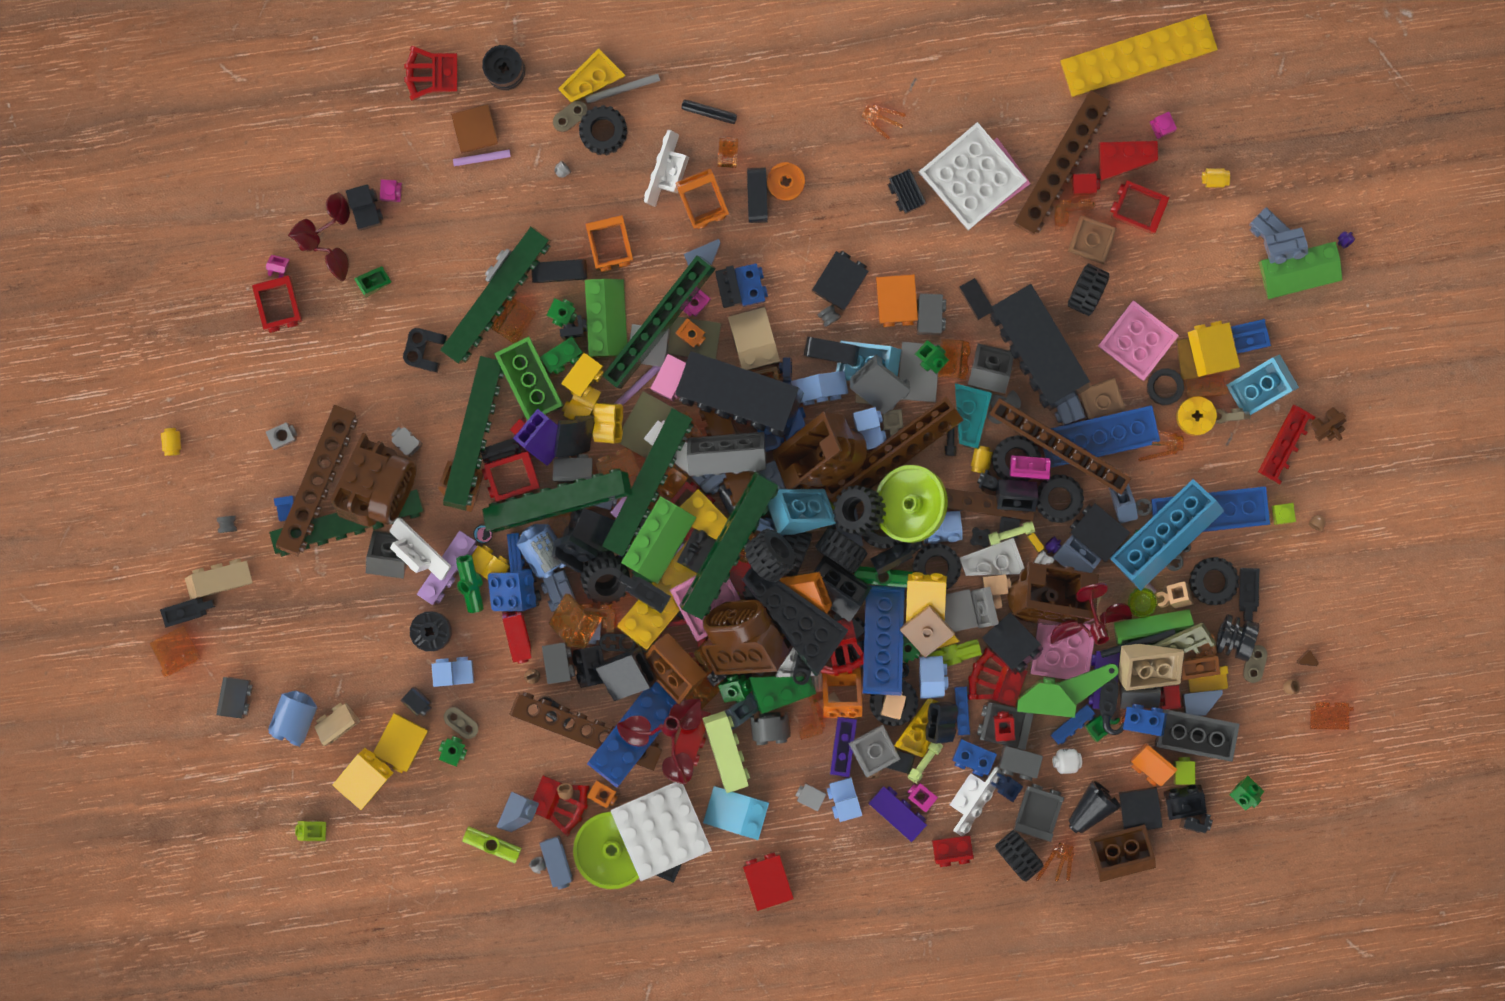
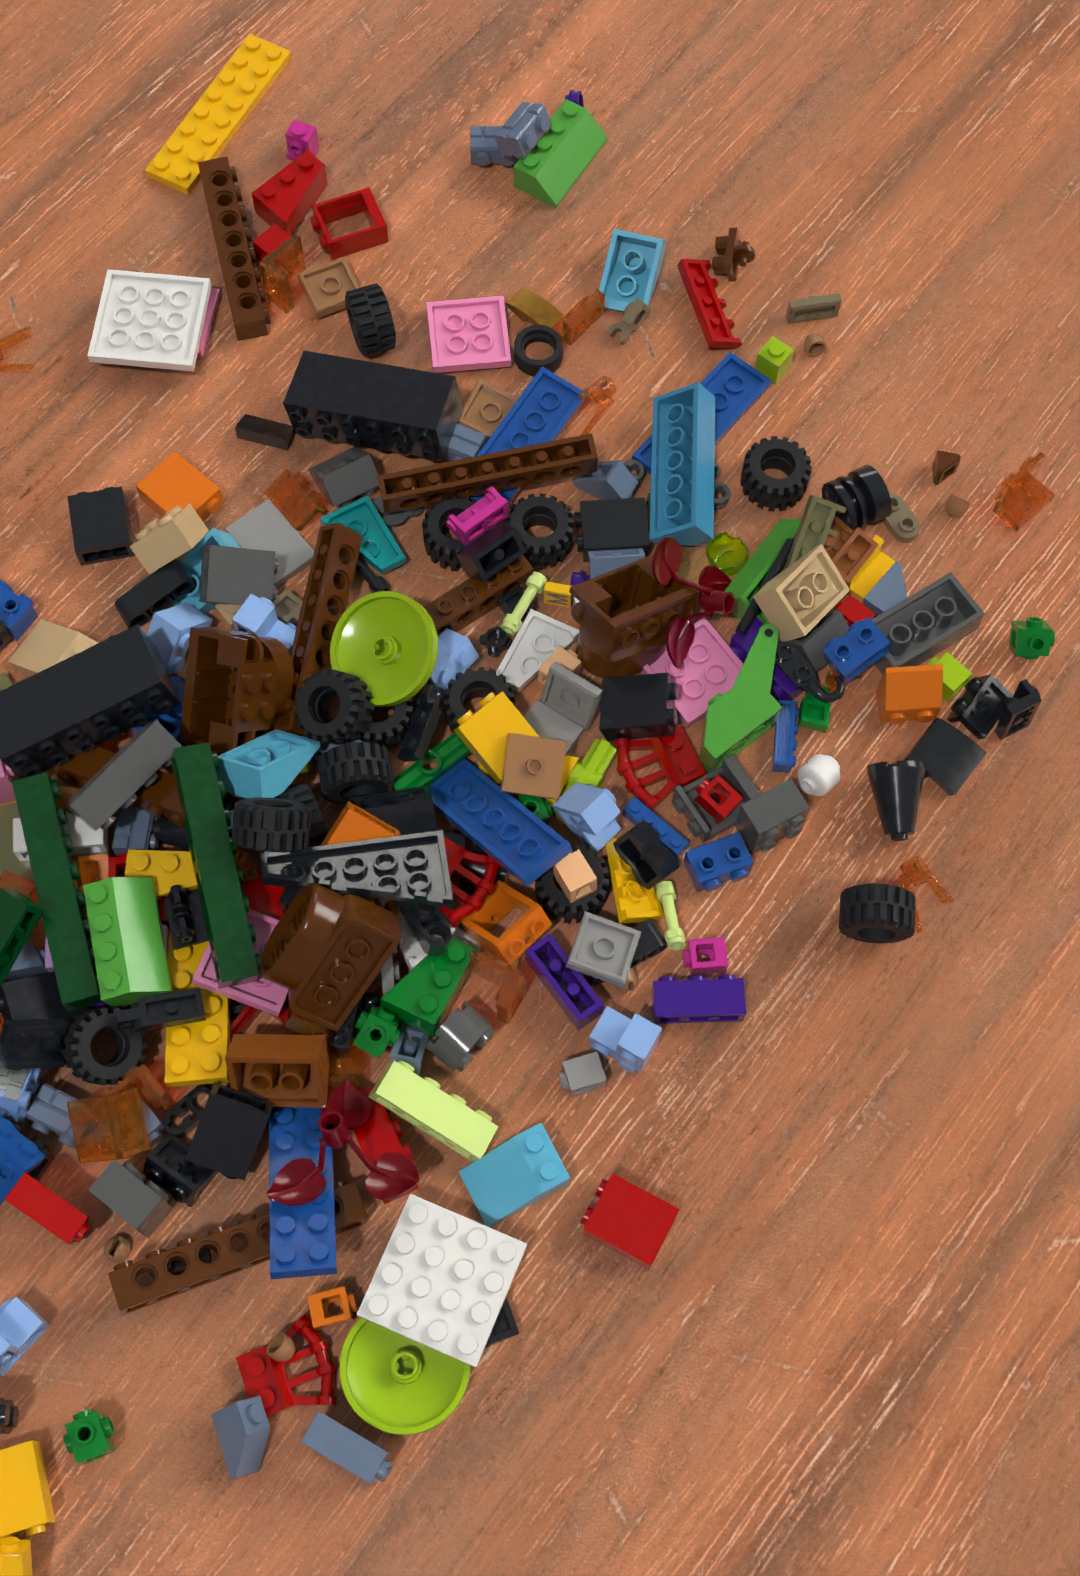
camera: 45 degrees left, 20 degrees down
(460, 724) = (73, 1390): dark tan plate -> none
(479, 840) = (225, 1518): lime piece -> none
(537, 865) = (329, 1479): light grey hinge -> none
(829, 315) = (120, 566): dark grey wheel -> none
(864, 331) = (168, 537): none -> tan brick
(906, 191) = (95, 392): black brick -> none
(930, 314) = (230, 471): dark grey brick -> none
(932, 357) = (268, 507): green brick -> none
(952, 850) = (797, 984): red bracket -> none
(972, 799) = (761, 908): white bracket -> none
(981, 459) = (421, 566): yellow brick -> none
(987, 481) = (448, 571): black hinge -> none
(1007, 787) = (787, 857): dark blue plate -> none
(1038, 812) = (845, 854): dark grey panel -> none
(1122, 853) = (977, 813): reddish brown slope -> none
(1178, 595) = (755, 515): light nougat brick -> none
(1204, 408) = (596, 347): yellow brick -> none
(1213, 348) = (549, 277): yellow brick -> none
(1216, 177) = (398, 146): yellow brick -> none
(1248, 591) = (824, 460): black hinge -> none
(1250, 336) = (572, 246): blue plate -> none
(1340, 501) = (813, 308): none -> dark tan plate

